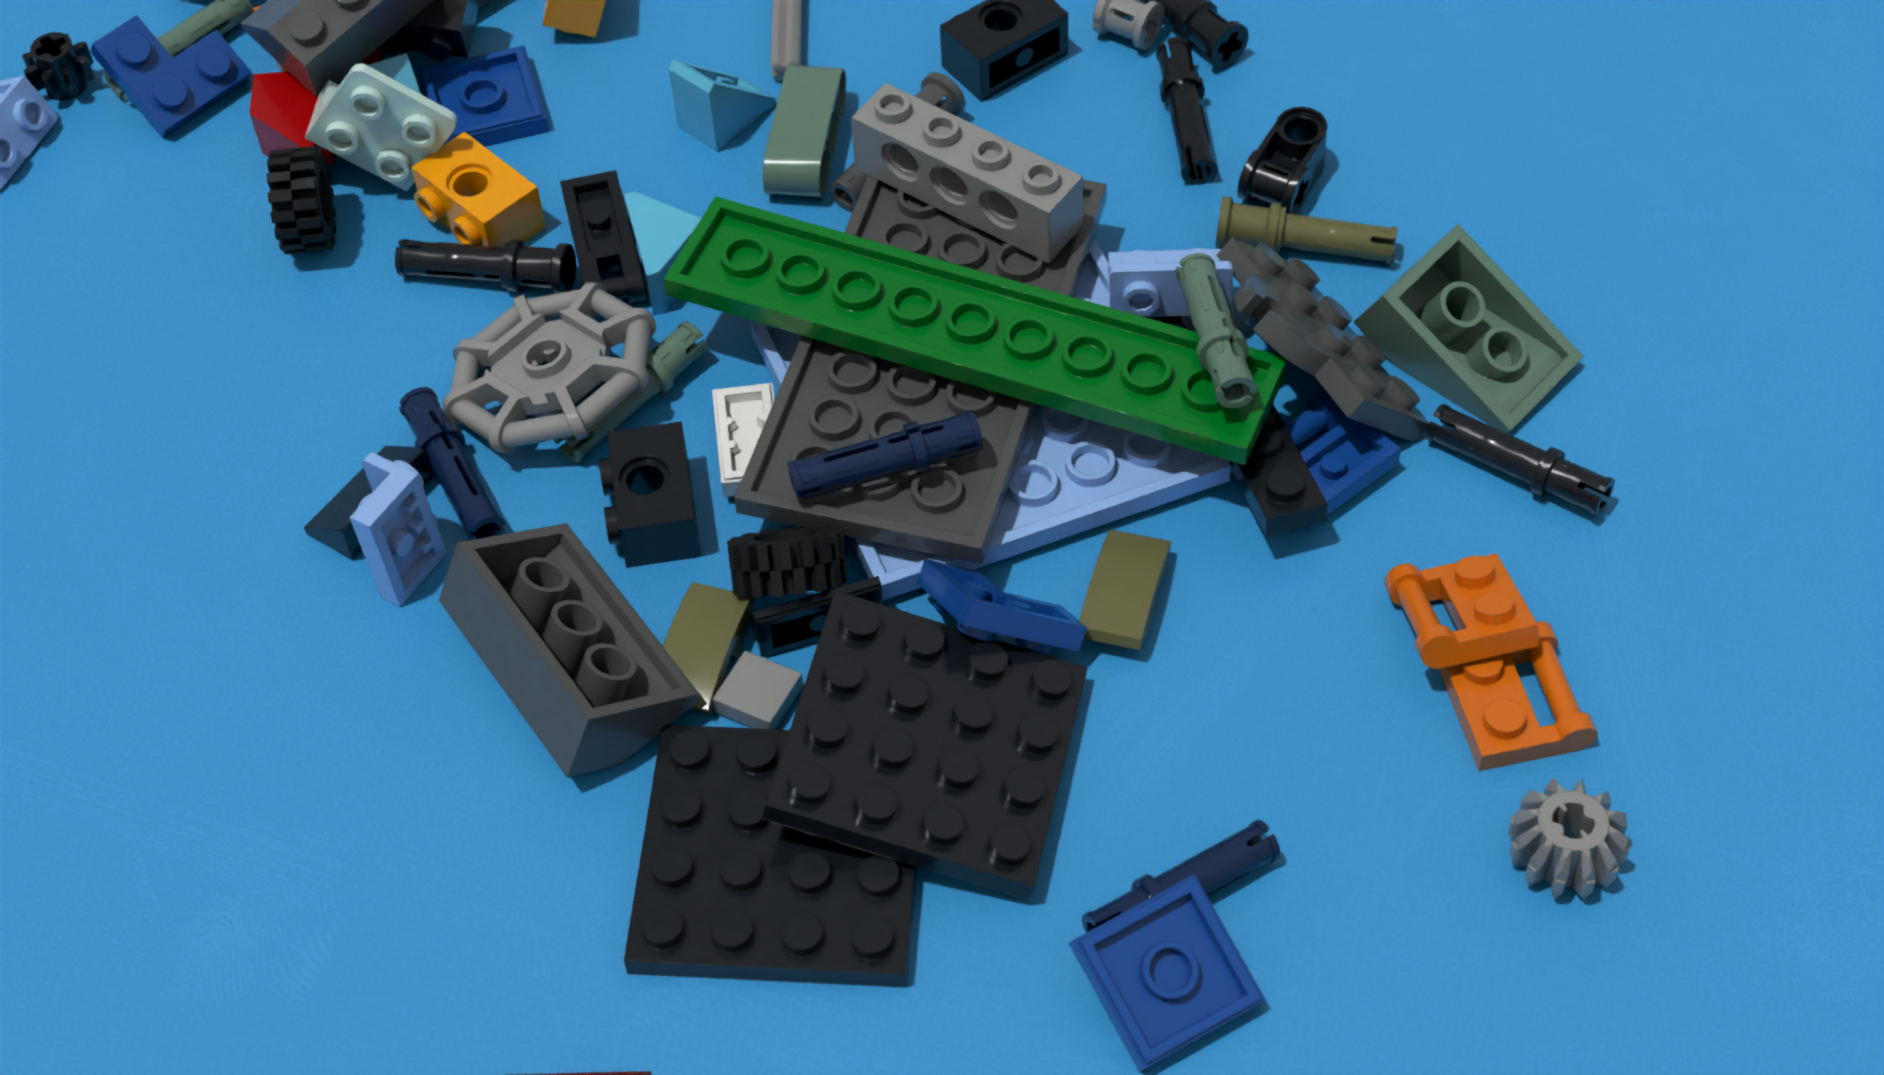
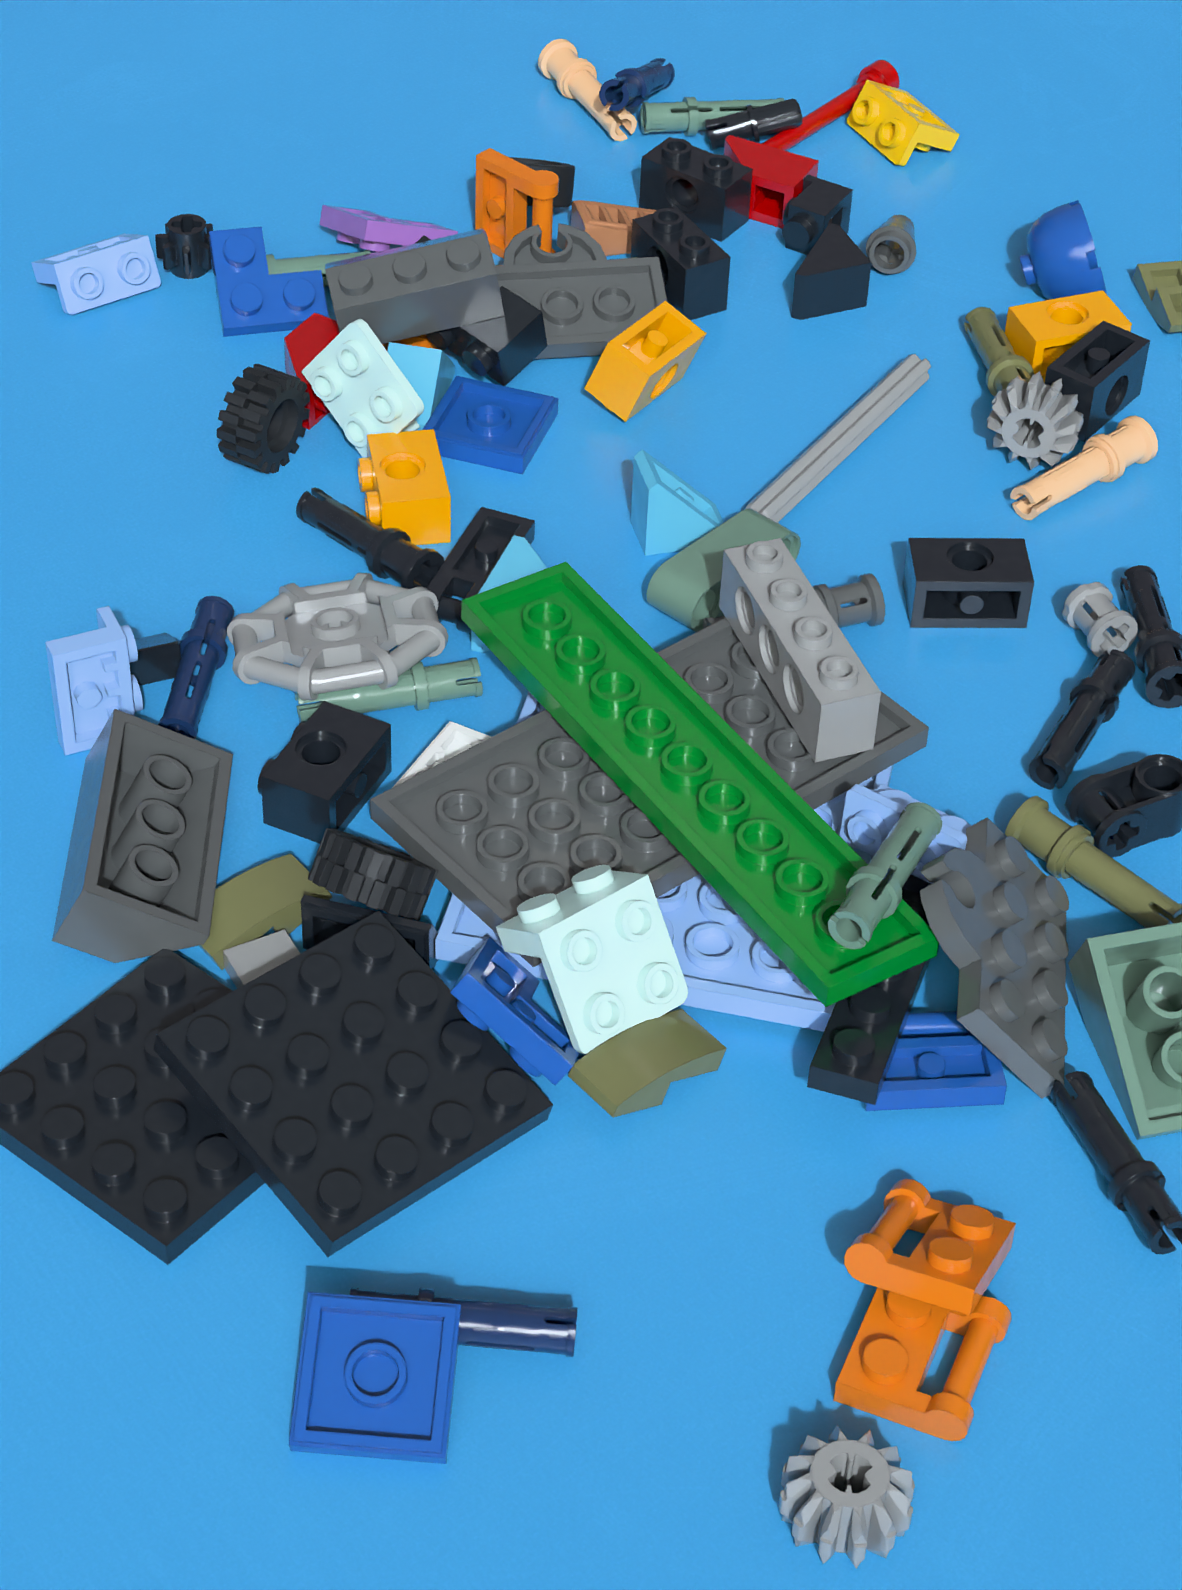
camera: 30 degrees right, 10 degrees down
(898, 452) = (541, 834): dark blue pin -> none
(1038, 510) = (601, 953): none -> light aqua bracket

